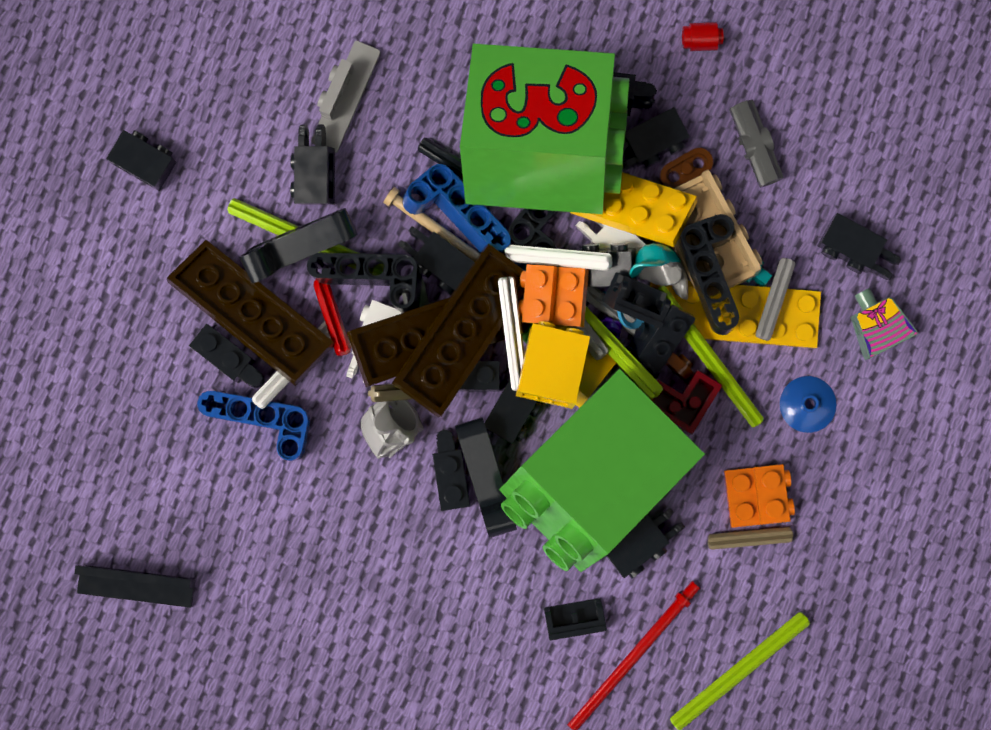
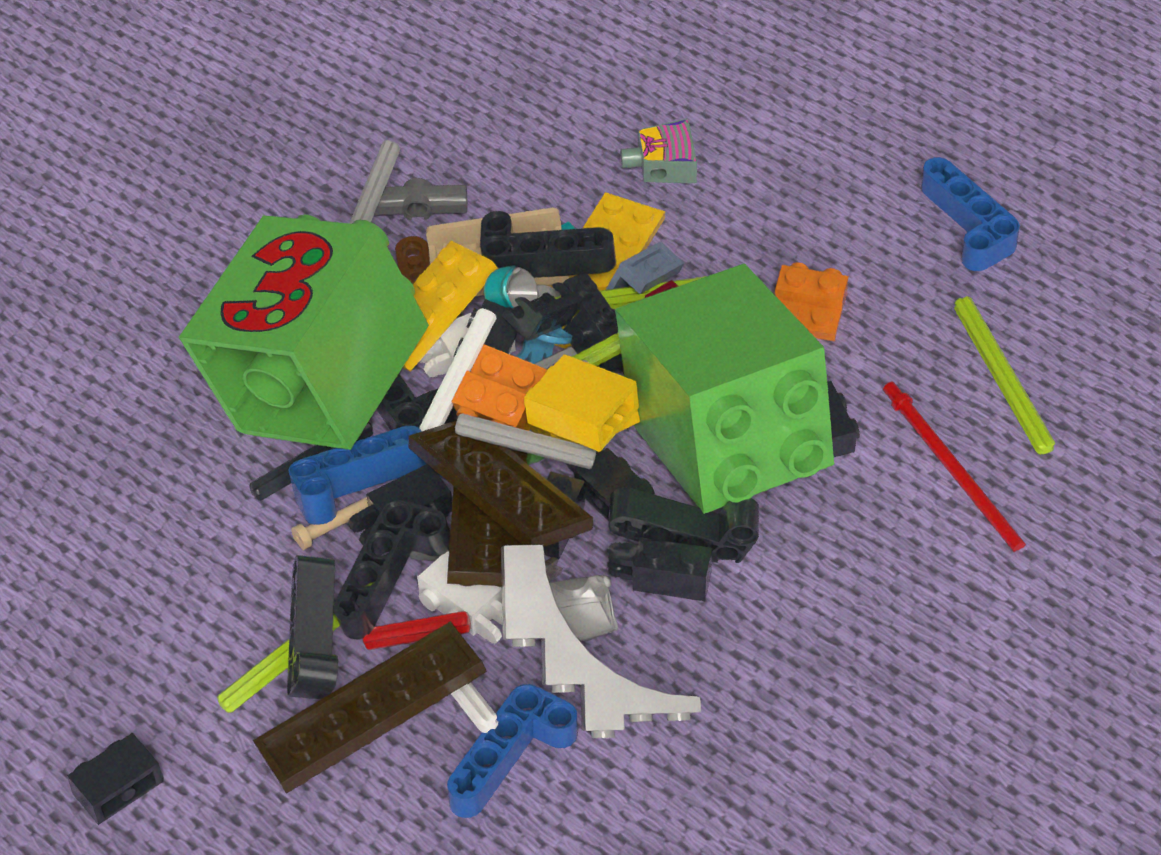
camera: 70 degrees left, 35 degrees down
(226, 357) = (413, 755): black hinge -> none
(313, 169) = (228, 596): black hinge -> none
(324, 443) = (605, 696): none -> arch
(345, 92) = (158, 549): light grey bracket -> none
(575, 619) = (888, 502): black hinge -> none
(702, 36) = (278, 203): red brick -> none
(731, 108) = (376, 181): none -> light grey axle
(733, 360) = (646, 269): none -> sand blue panel
(750, 538) = (853, 325): dark tan axle -> none
(775, 299) = (592, 218): light grey axle -> none
(793, 404) = (723, 248): blue dish -> none
(856, 246) = (570, 149): black hinge -> none
(904, 591) = (989, 226): none -> blue beam

